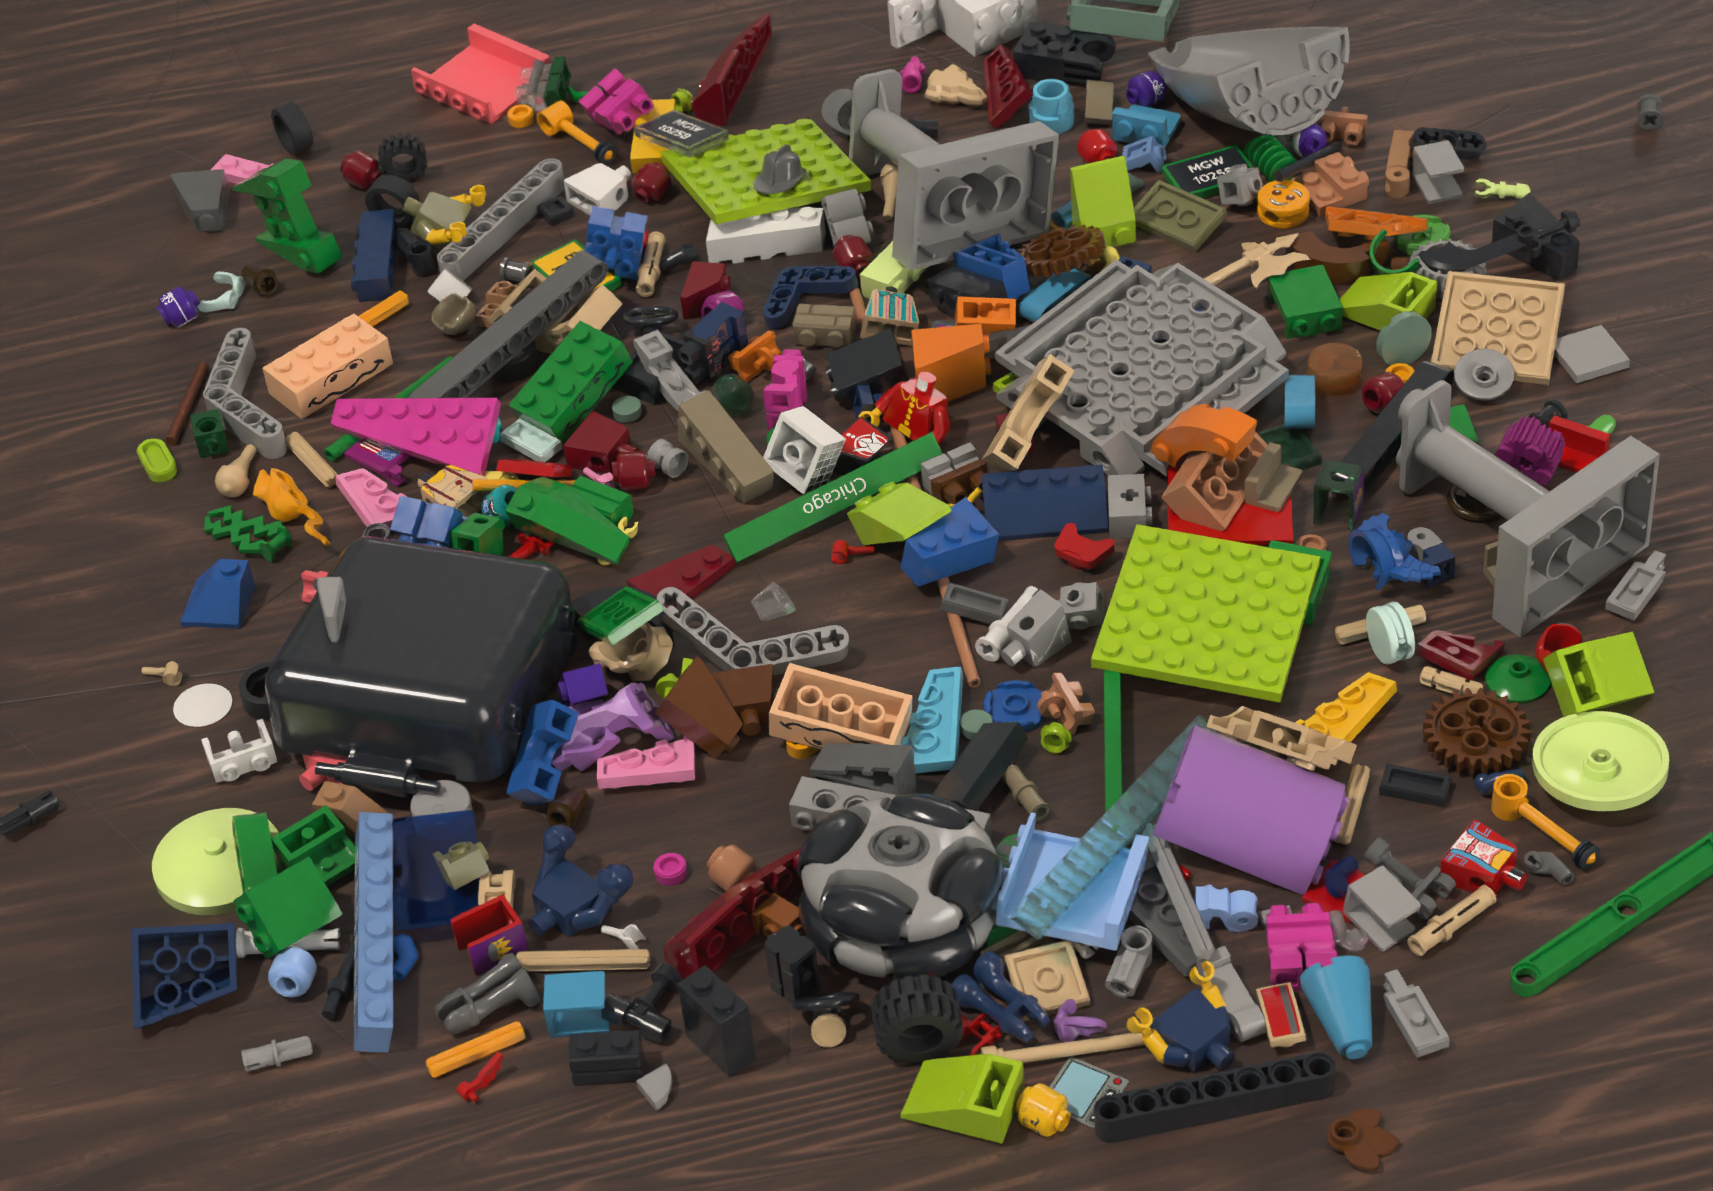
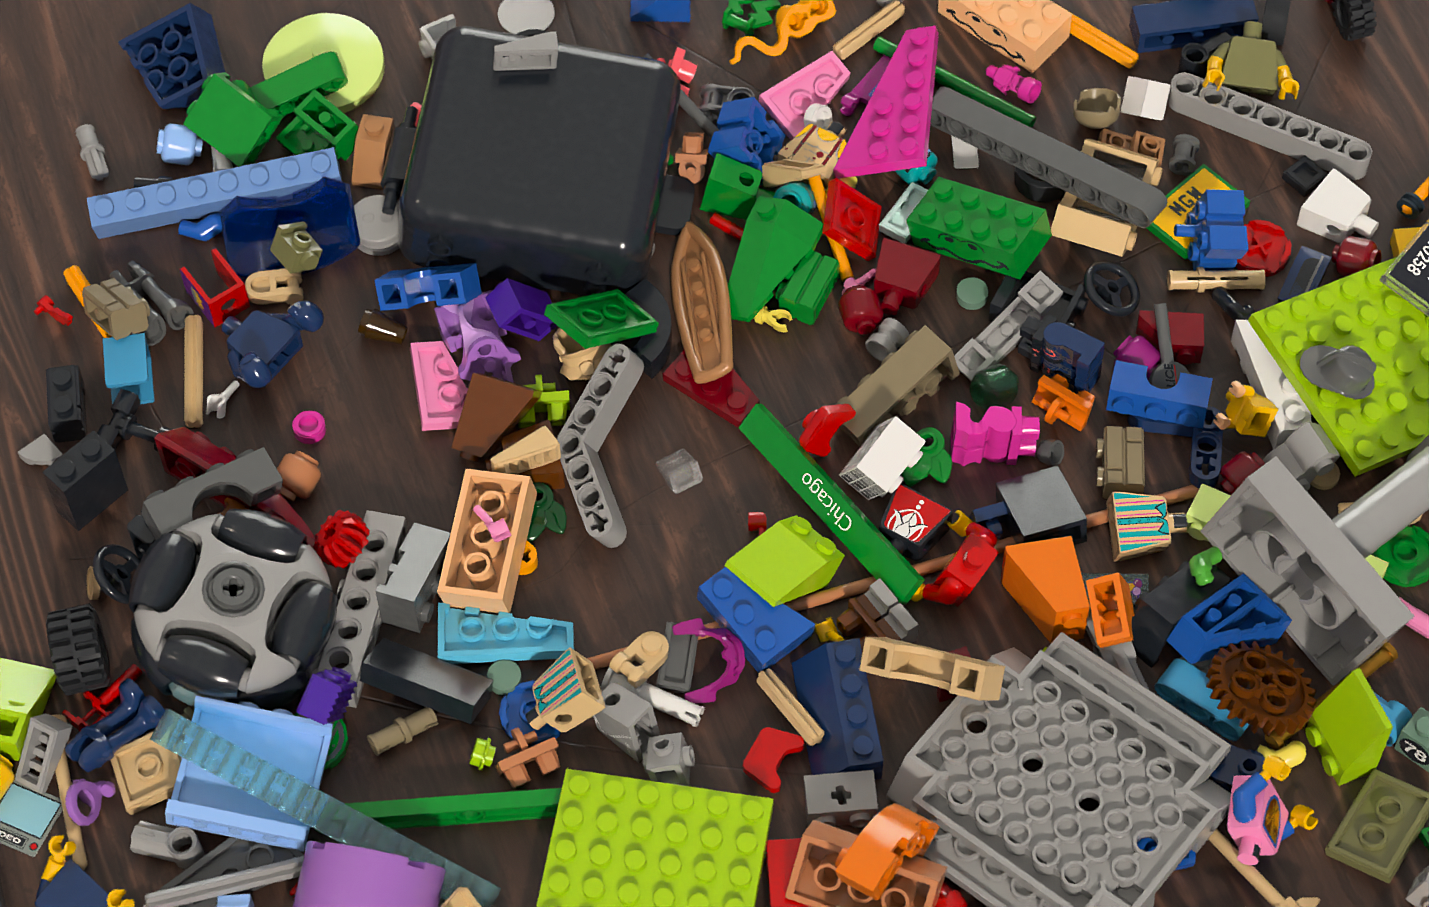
camera: 80 degrees right, 15 degrees up
(400, 373) = (1007, 79): none -> dark pink piece
(408, 489) = (818, 115): none -> white tile
(481, 490) = (786, 171): none -> tan slope
(509, 998) = (116, 308): none -> dark tan brick
(625, 563) = (702, 305): none -> medium nougat piece
(664, 214) = (1305, 273): none -> dark blue slope
(746, 292) = (1168, 372): none -> dark grey piece
(753, 675) = (528, 453): none -> tan slope
(759, 488) = (821, 426): none -> red piece
(777, 280) = (1135, 396): none -> blue arch
(788, 911) = (248, 478): none -> dark grey arch
(794, 244) = (1246, 411): none -> yellow piece
(820, 800) = (341, 539): none -> red gear
(844, 689) = (497, 529): none -> bright pink hand
(945, 270) = (1202, 564): none -> bright green arm
(953, 580) = (732, 653): none -> magenta helmet
(980, 613) = (649, 650): none -> tan plate
(1005, 810) = (327, 696): none -> dark purple brick
(1016, 656) = (566, 693): none -> tan torso
(1022, 1041) = (55, 735): none -> light grey slope
(1035, 531) = (790, 707): none -> tan axle
(1163, 252) = (1258, 815): none -> torso

